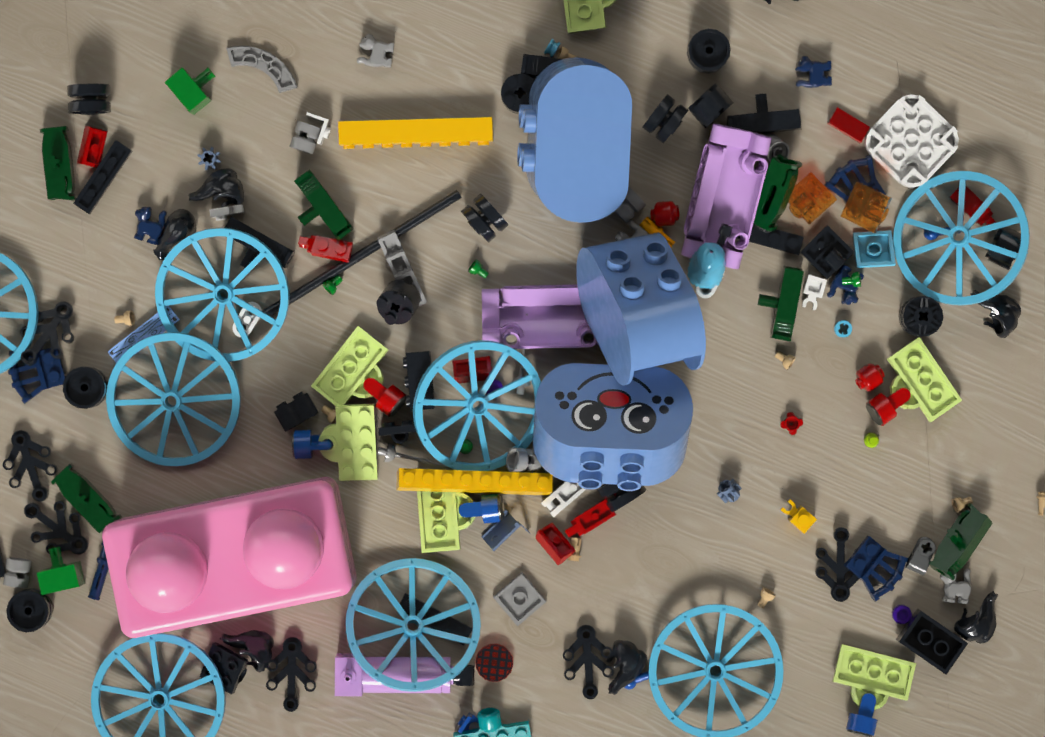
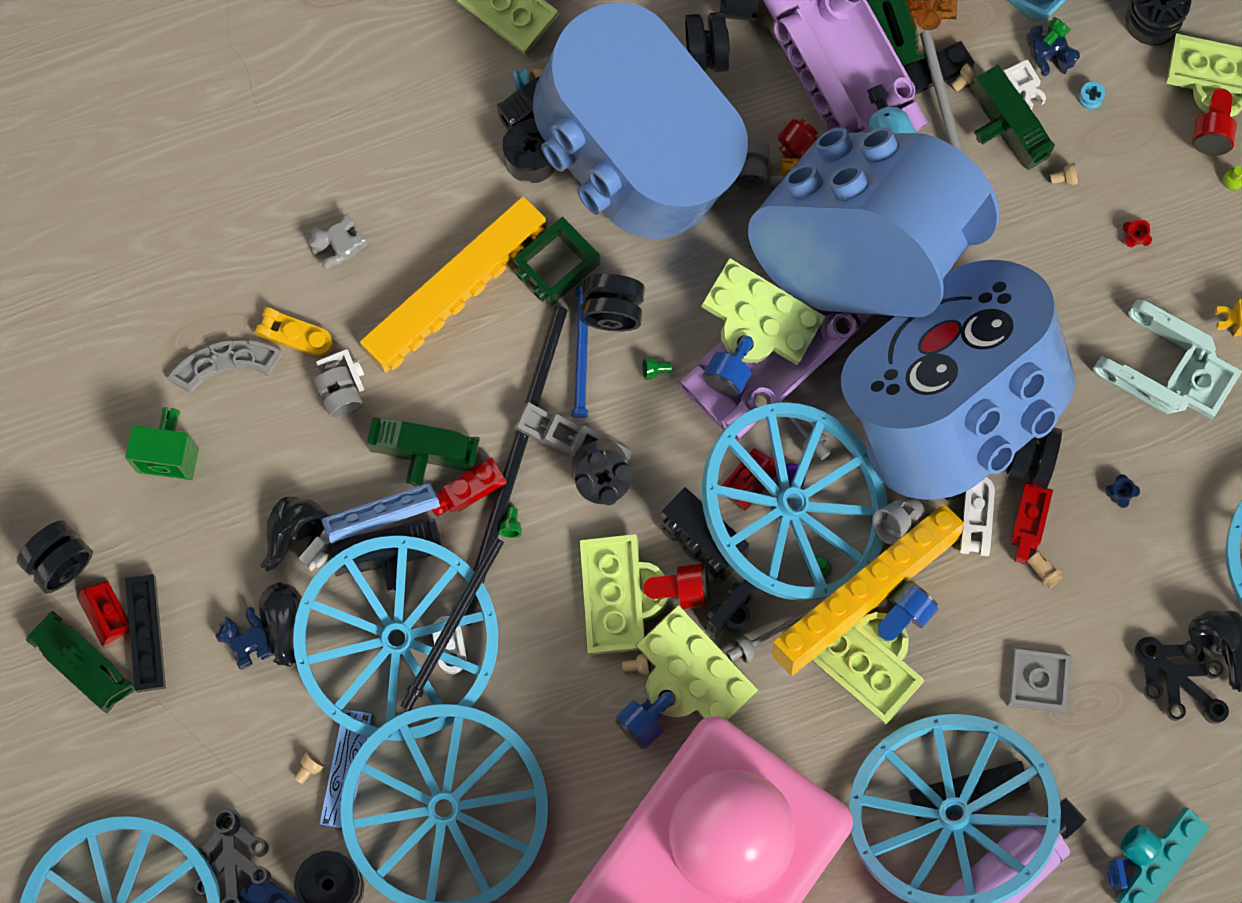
camera: 40 degrees left, 15 degrees down
(209, 329) = (442, 641): none -> black bar
(214, 160) = (248, 500): sand blue gear -> none
(269, 223) = (380, 512): none -> light blue tile
(296, 411) = (597, 696): black brick -> none
(312, 83) = (295, 334): none -> yellow plate
(444, 231) = (581, 362): none -> blue bar
(456, 175) = (588, 255): none -> dark green window
(494, 662) = (1082, 777): tile -> none
(501, 531) = (948, 622): sand blue piece -> none
(546, 297) = (756, 322): none -> yellowish green plate
(554, 543) = (1018, 582): red slope -> none
(647, 542) = (1128, 485): none -> dark blue plate
(729, 491) = (1145, 356): sand blue gear -> none
(730, 315) = (940, 89): none -> light grey bar
(744, 527) = (1197, 383): none -> light aqua plate
(788, 259) = (967, 76): none -> tan piece
(827, 252) = (999, 35): black plate -> none
(869, 377) = (1168, 115): red head -> none

